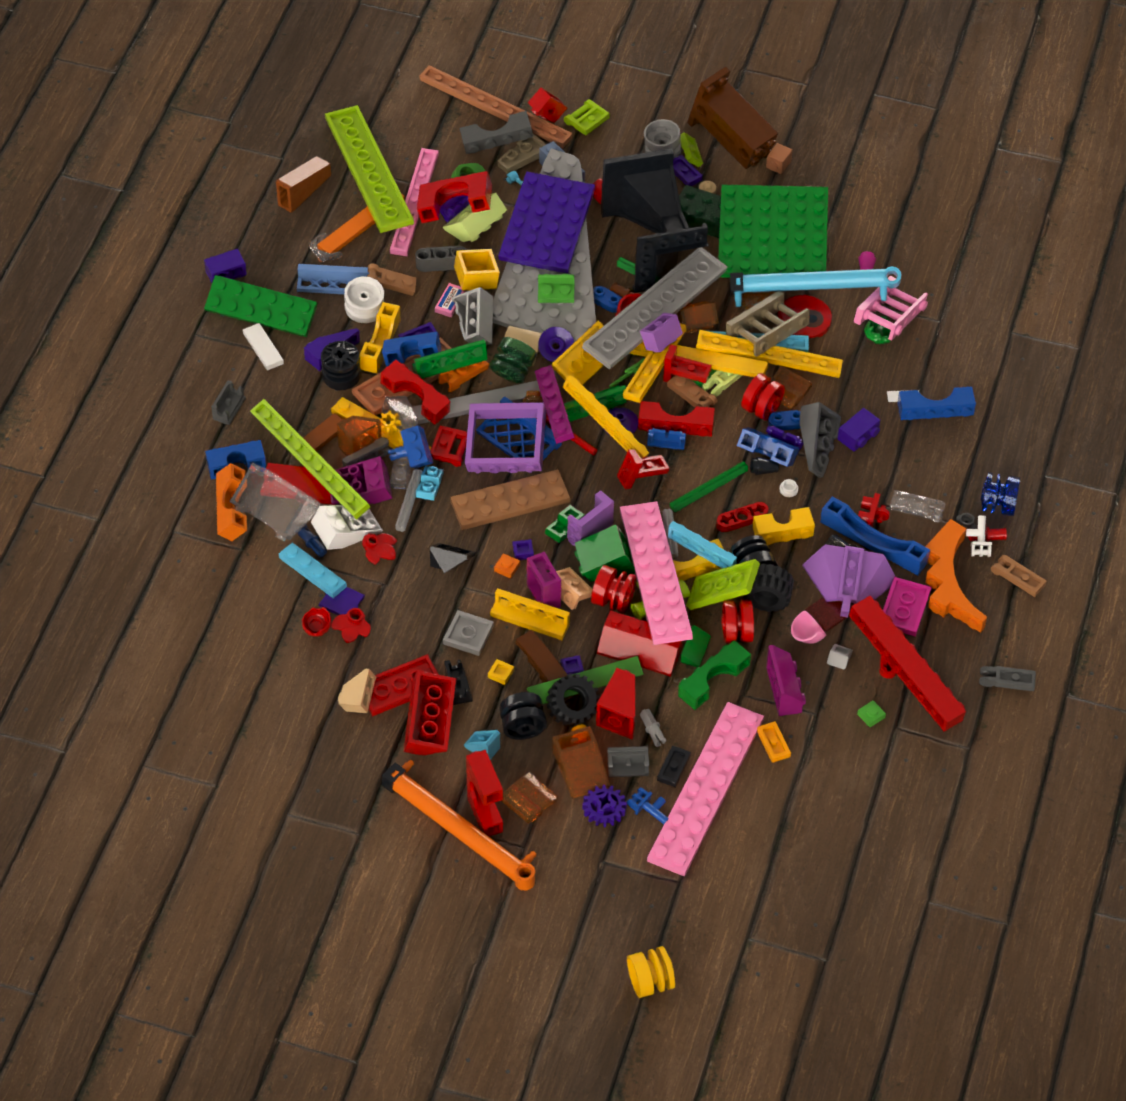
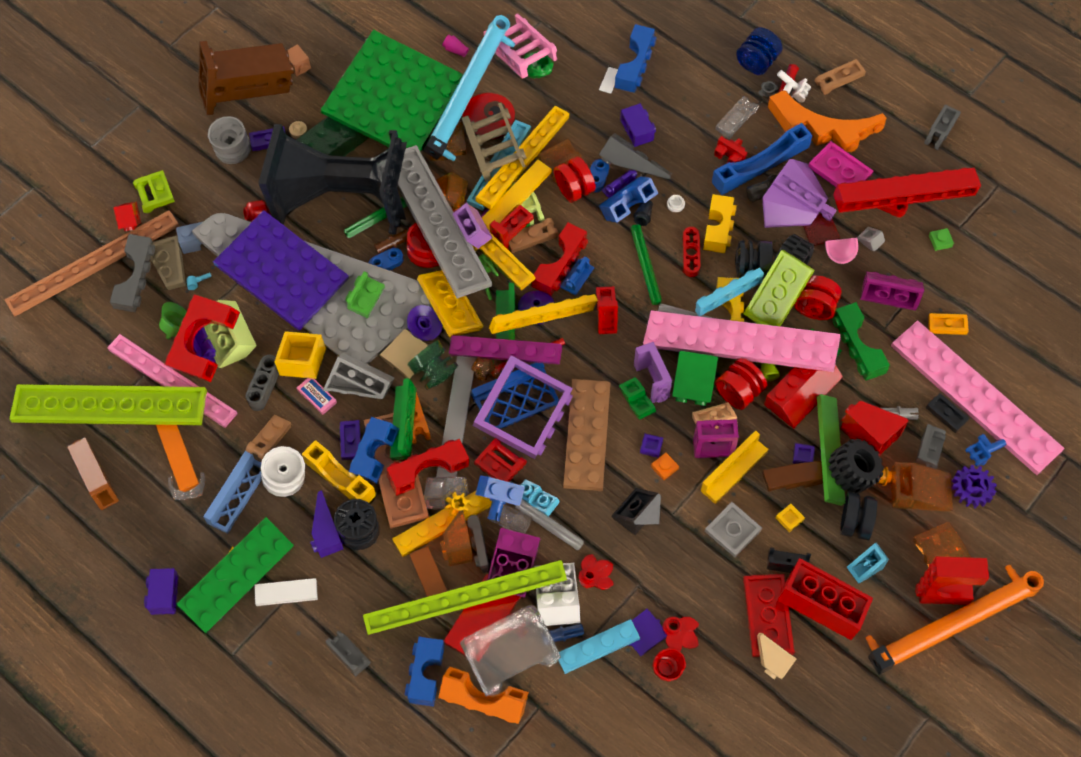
camera: 65 degrees left, 10 degrees up
(691, 150) = (252, 124): lime plate -> none

